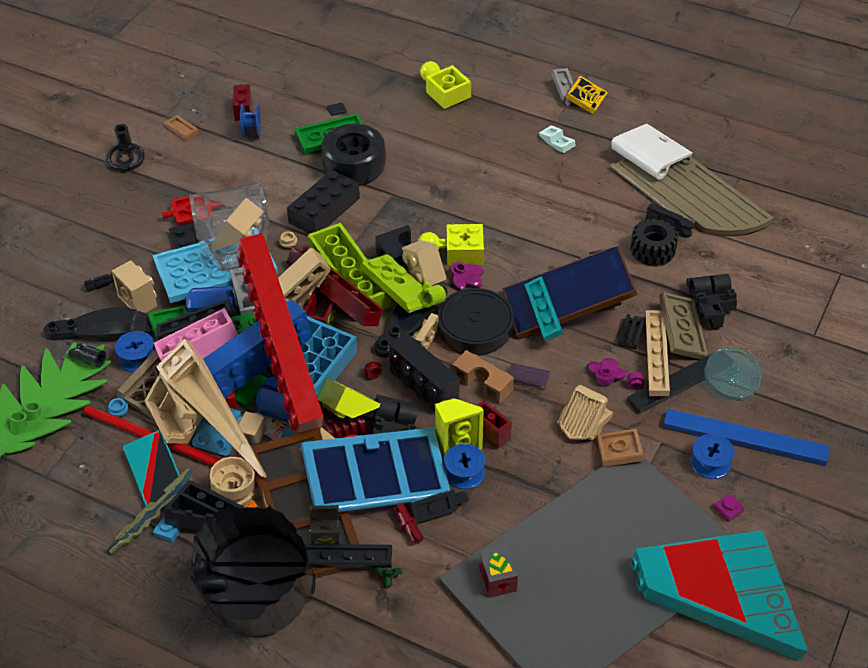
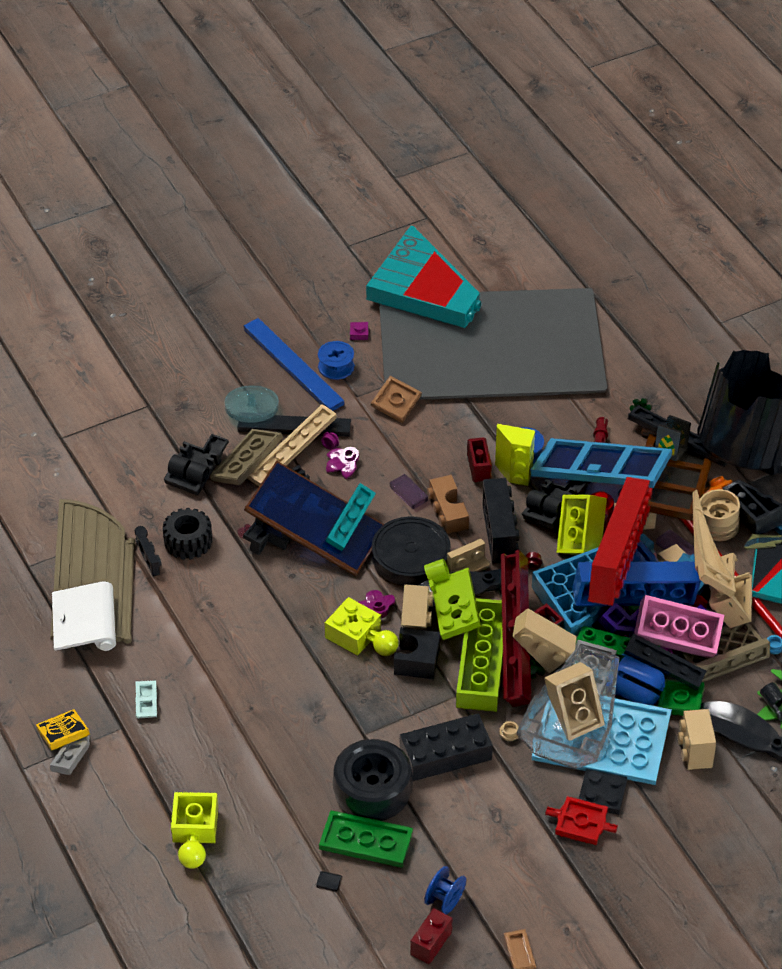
camera: 145 degrees left, 0 degrees up
(98, 281) = (720, 786): black axle -> none
(124, 144) = (601, 948): black piece -> none
(134, 349) = (730, 684): blue piece -> none
(436, 505) = (564, 433): black hinge -> none
(498, 570) = (568, 360): piece -> none
(584, 414) = (399, 432): tan piece -> none

